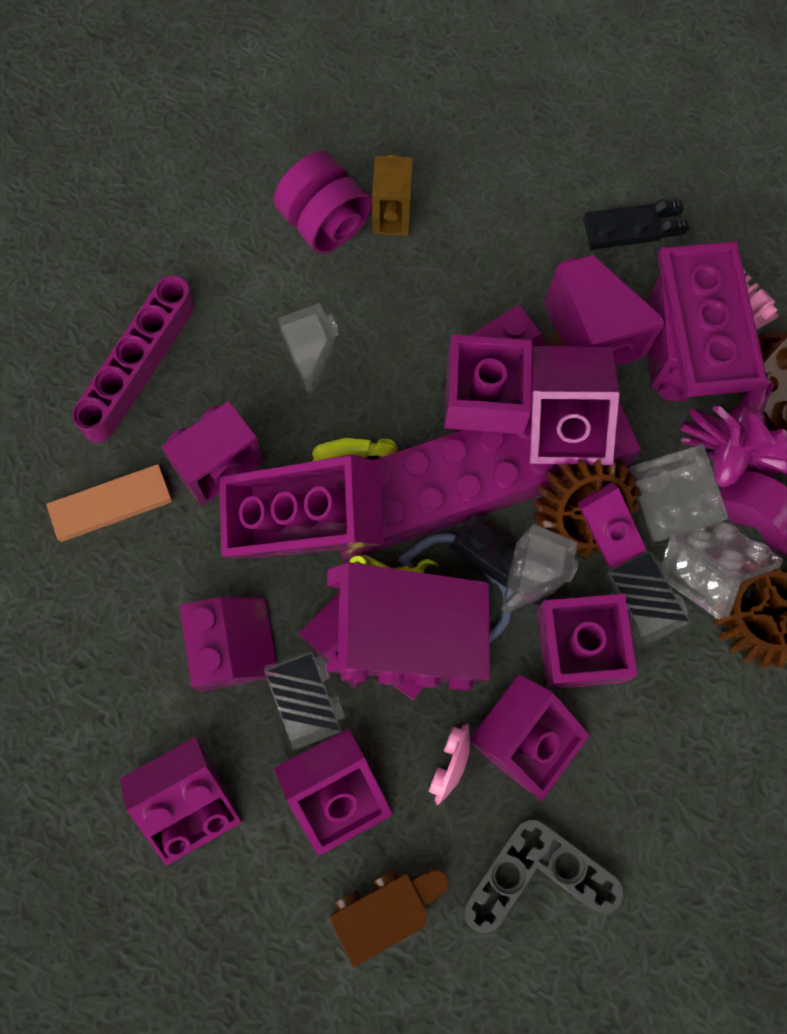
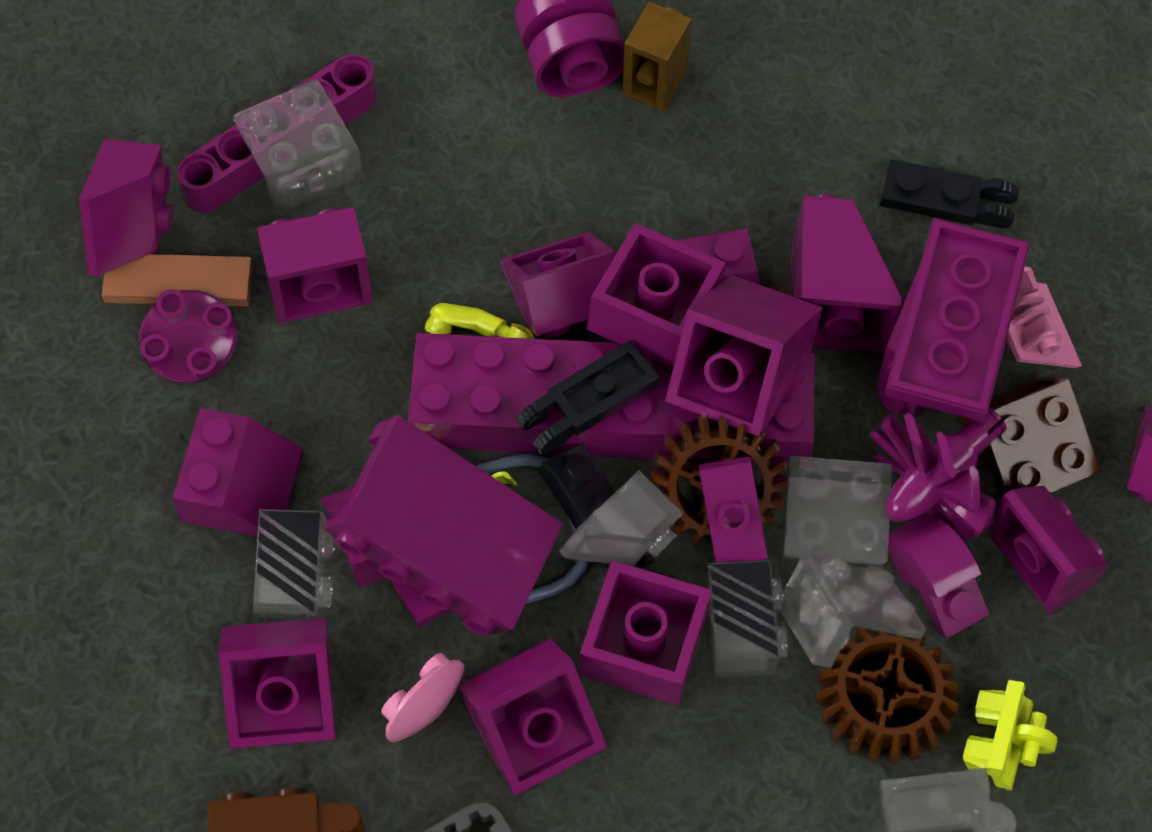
camera: 25 degrees right, 10 degrees down
(44, 463) = (124, 205): none -> magenta slope
(138, 545) = (187, 336): none -> magenta dish
(156, 362) = (299, 145): none -> clear bracket
(179, 801) = (104, 623): magenta slope -> none
(301, 508) = (380, 353): magenta brick -> none
(310, 343) = (485, 189): clear slope -> none
(400, 393) = (557, 281): none -> magenta slope
(474, 478) = (590, 396): none -> black hinge

